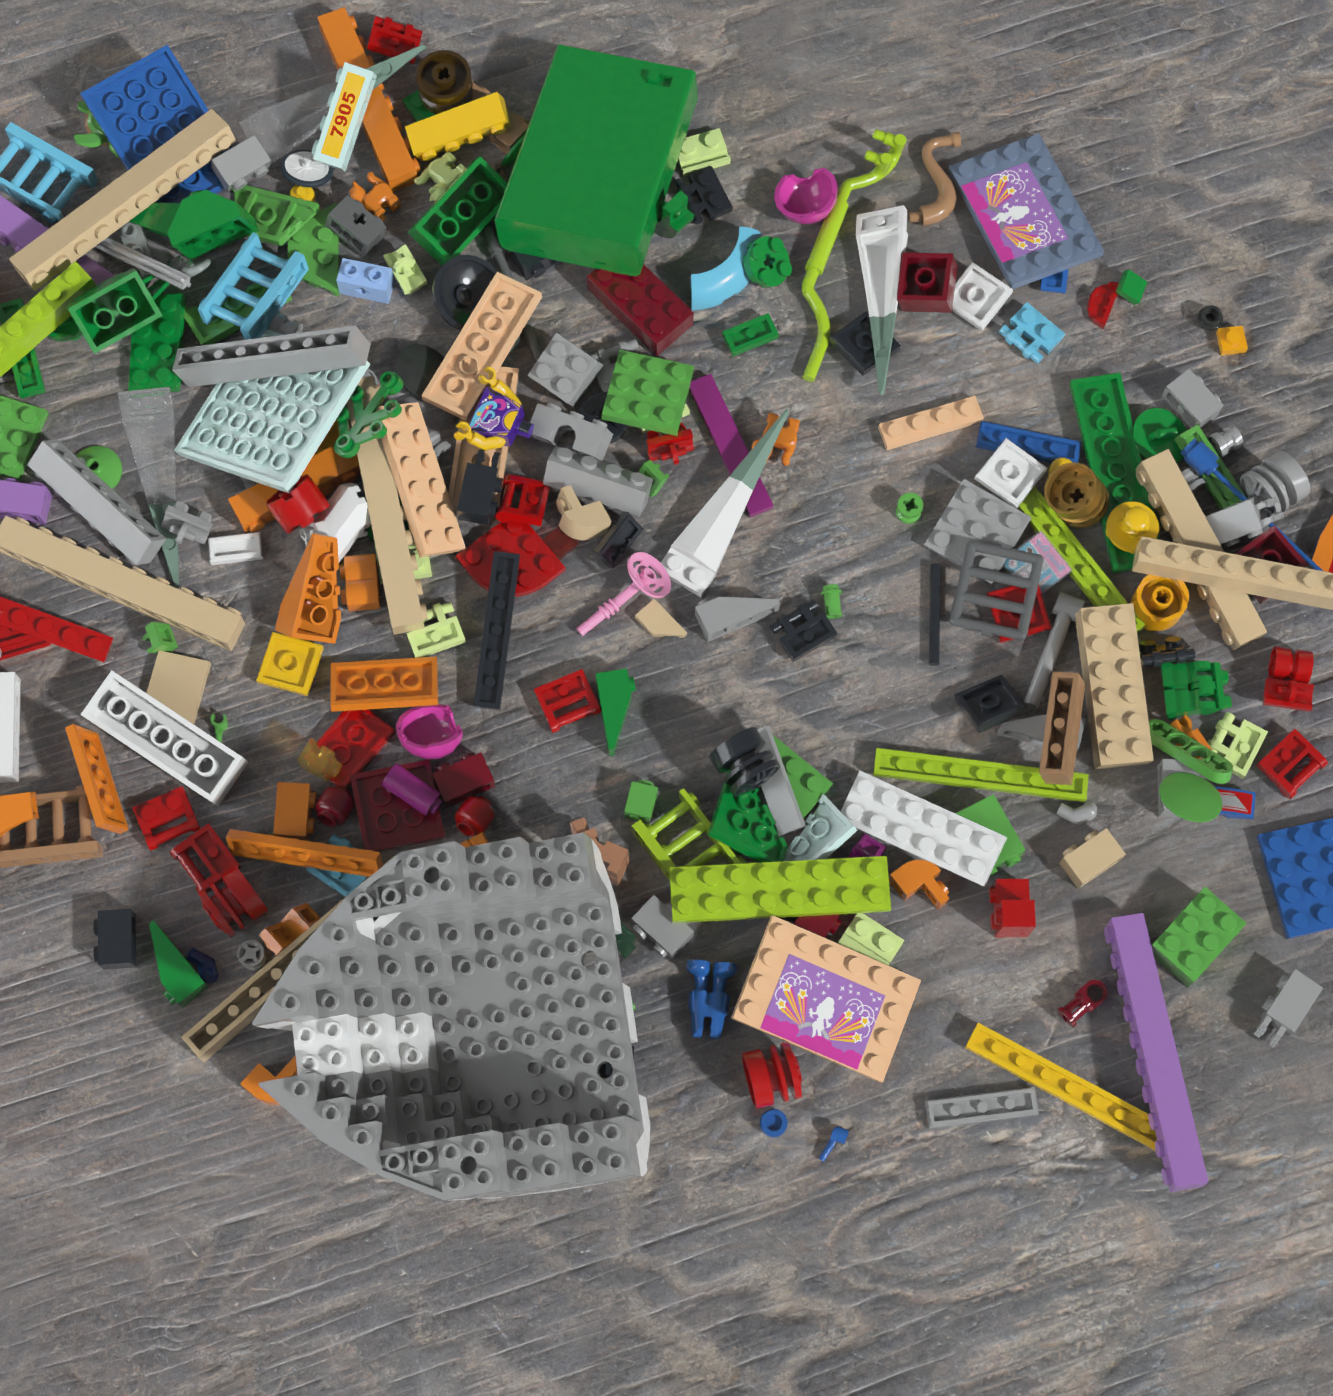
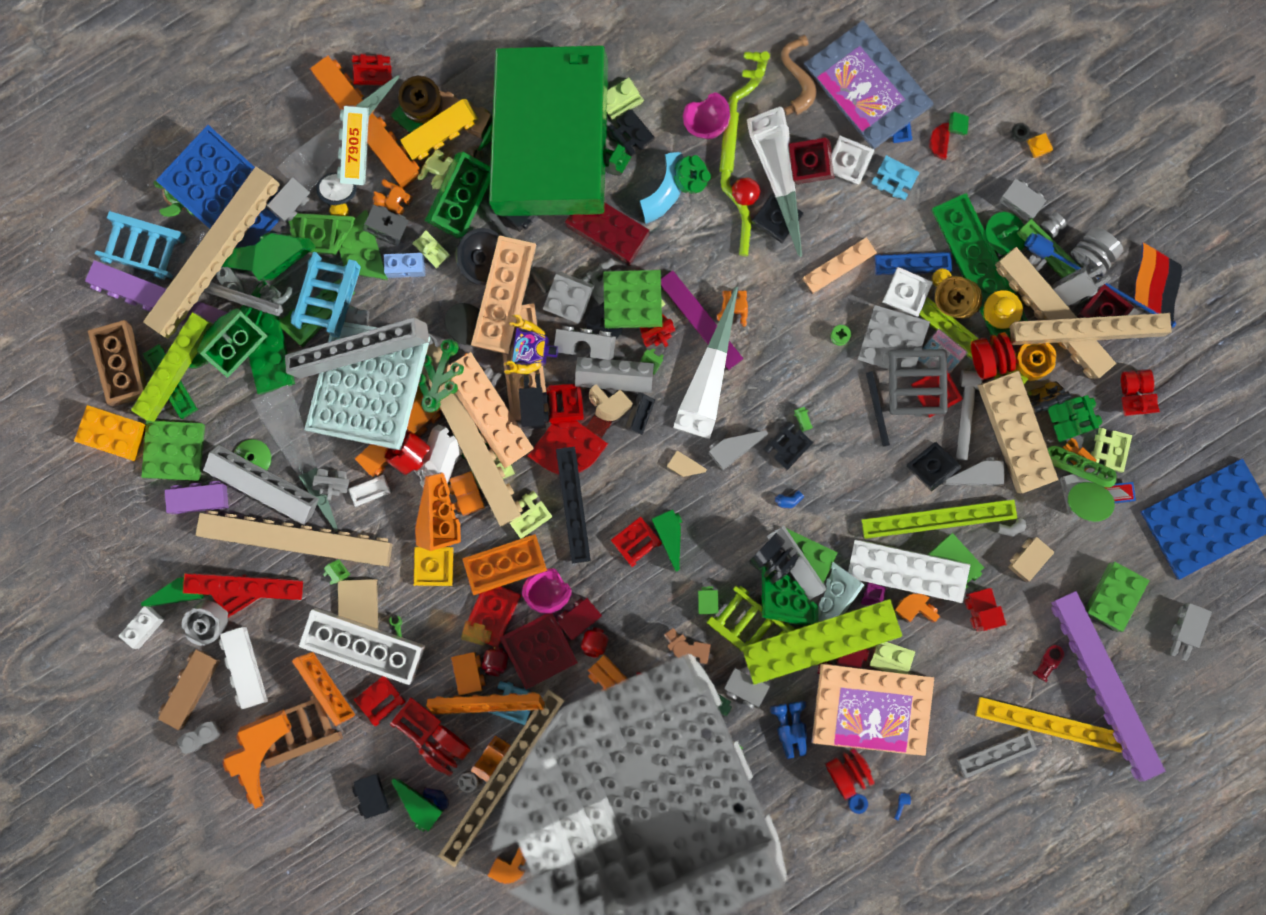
camera: 10 degrees left, 10 degrees up
(412, 790) = (547, 638): magenta brick -> none
(640, 582) = (664, 442): bright pink dish -> none
(750, 334) = (693, 233): green plate -> none
(784, 702) = (789, 502): none -> blue arm
(832, 299) = (745, 191): none -> red hair
(1062, 728) = (990, 475): medium nougat brick -> none
(1109, 577) = (995, 355): none -> red wheel
(1285, 757) = (1148, 449): red plate -> none

